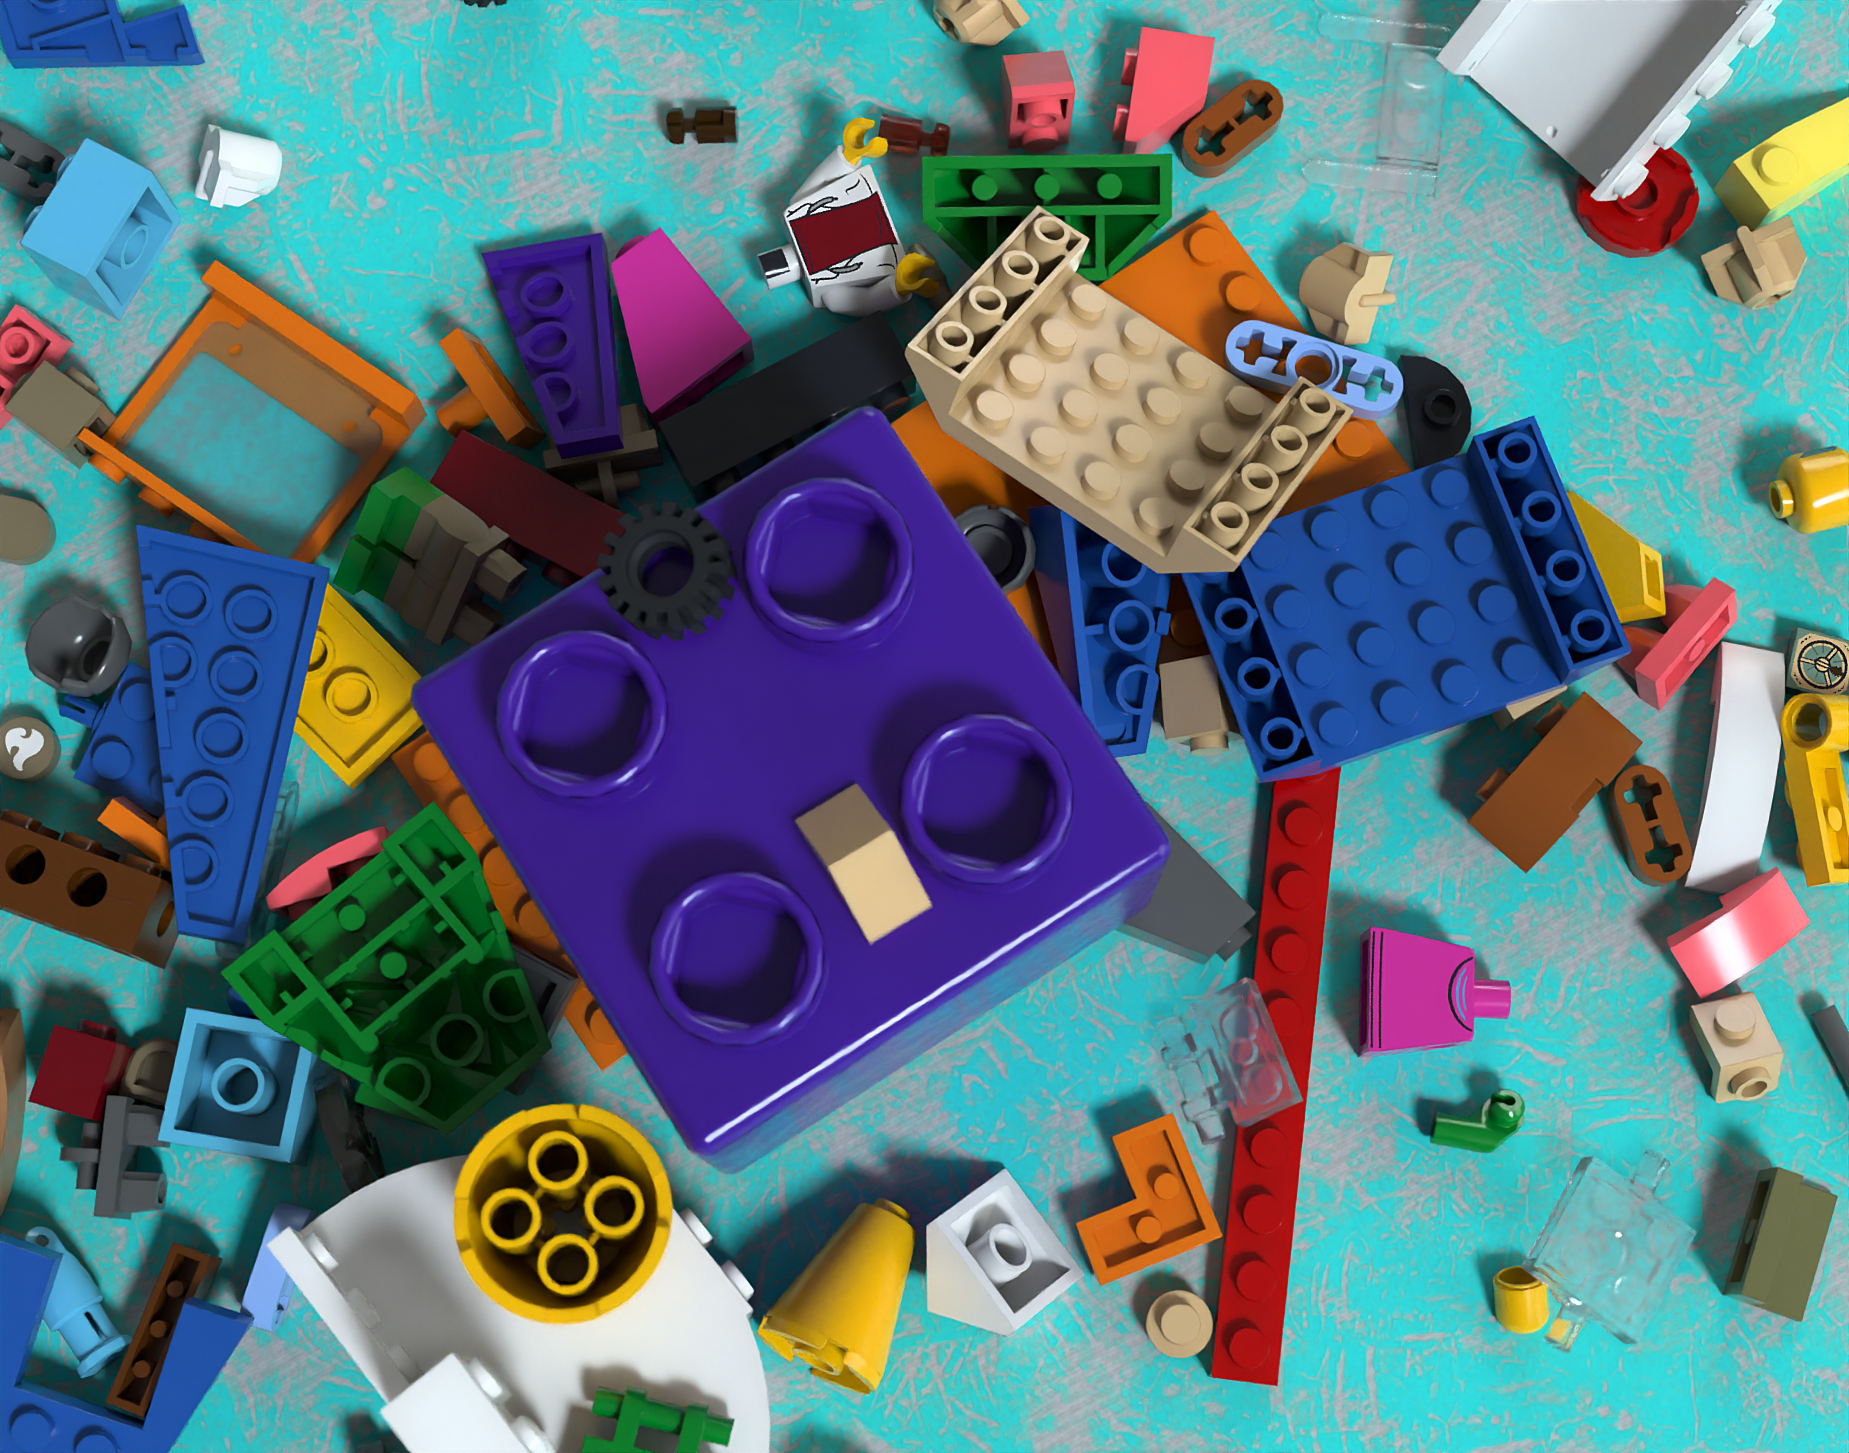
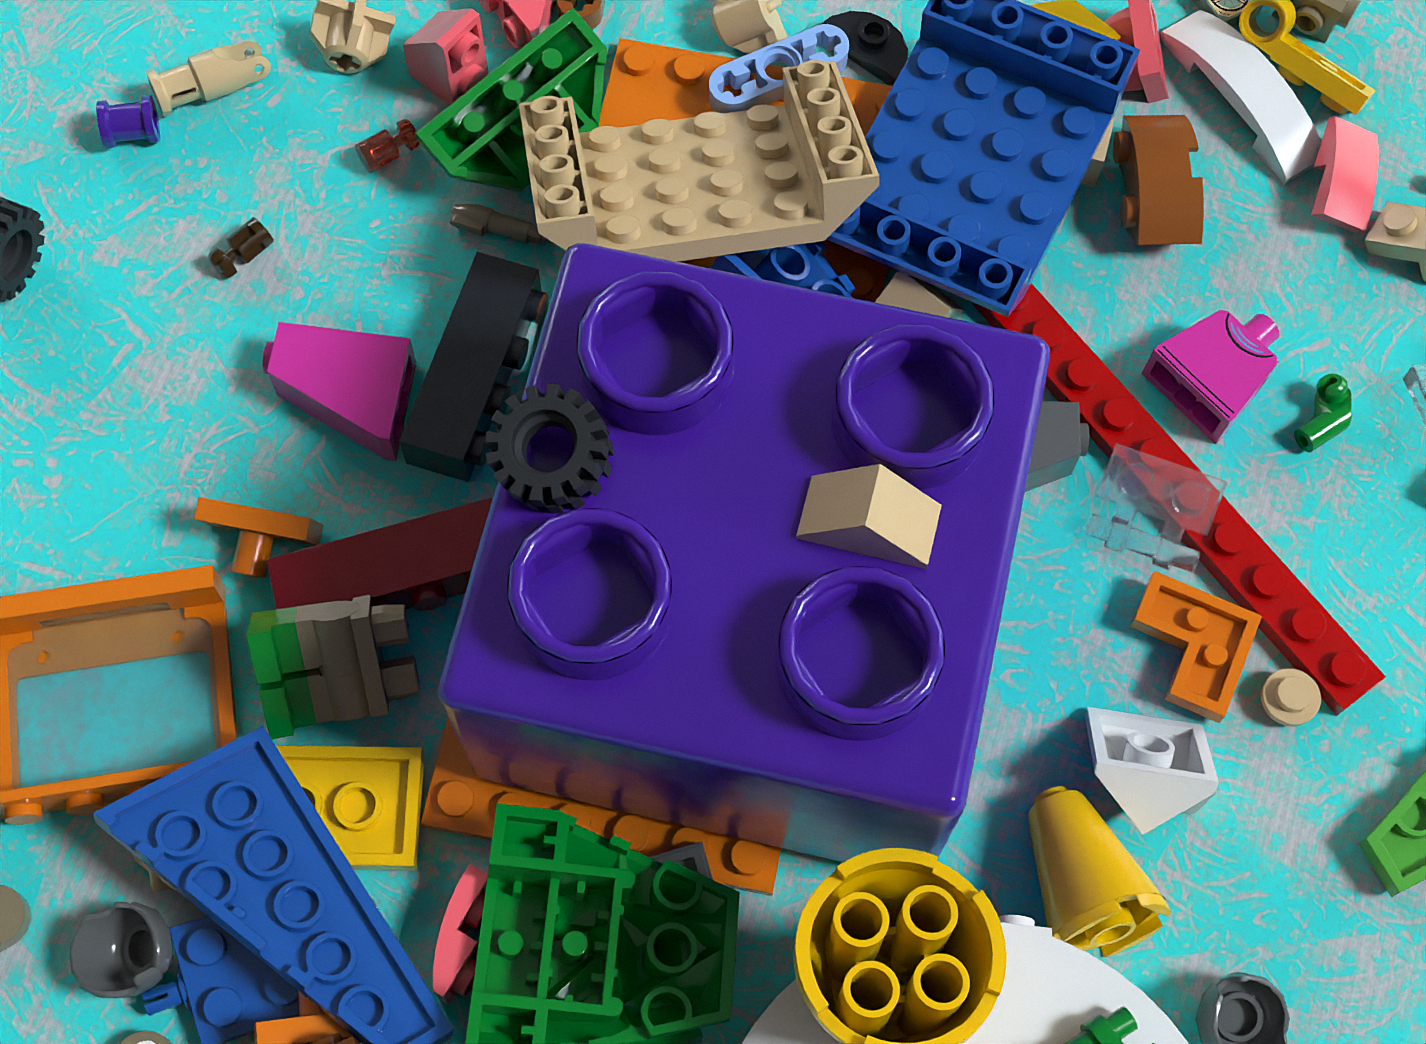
camera: 45 degrees left, 10 degrees down
(564, 331) = (279, 443): dark purple wing -> none
(614, 470) = (385, 501): dark tan hips -> none
(845, 237) = (407, 235): torso -> none
(1663, 821) = (1234, 163): dark orange beam -> none

